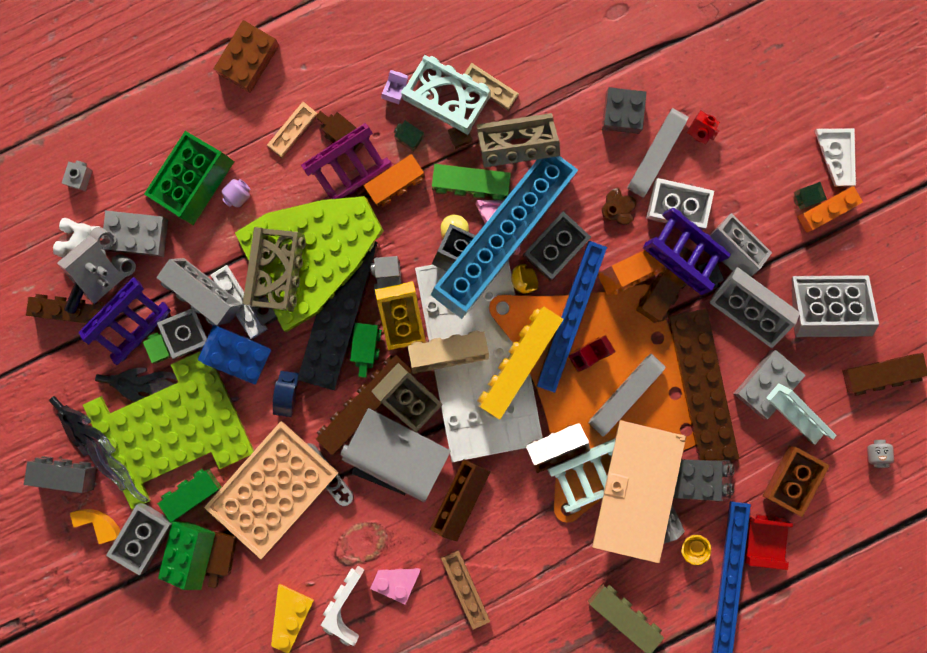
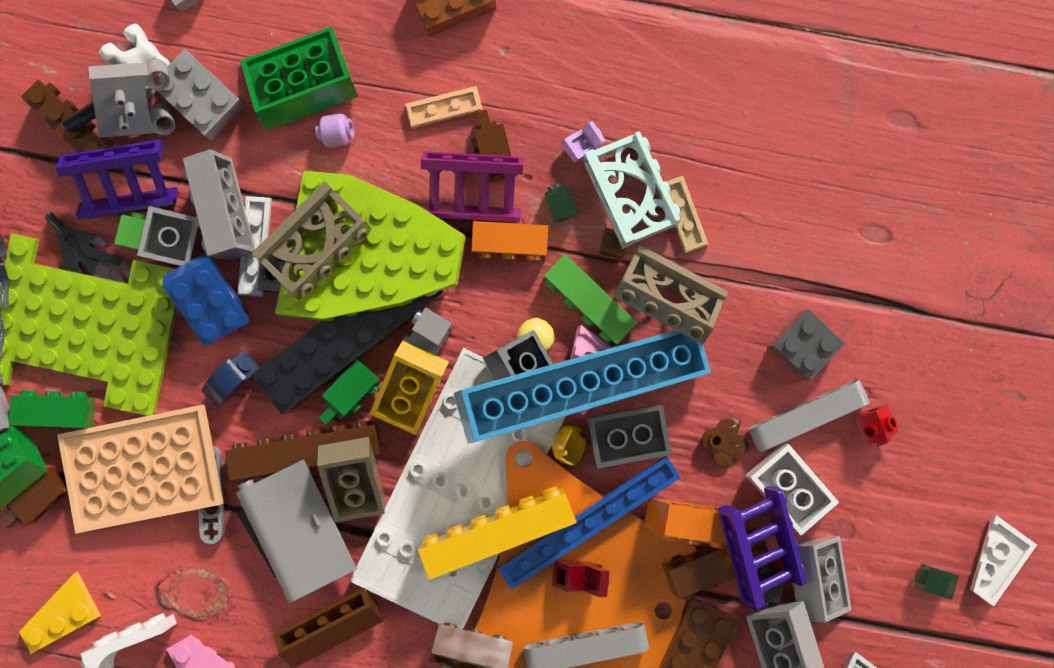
camera: 30 degrees right, 0 degrees up
(448, 352) = (430, 463): tan brick -> none
(830, 209) = (947, 612): orange brick -> none

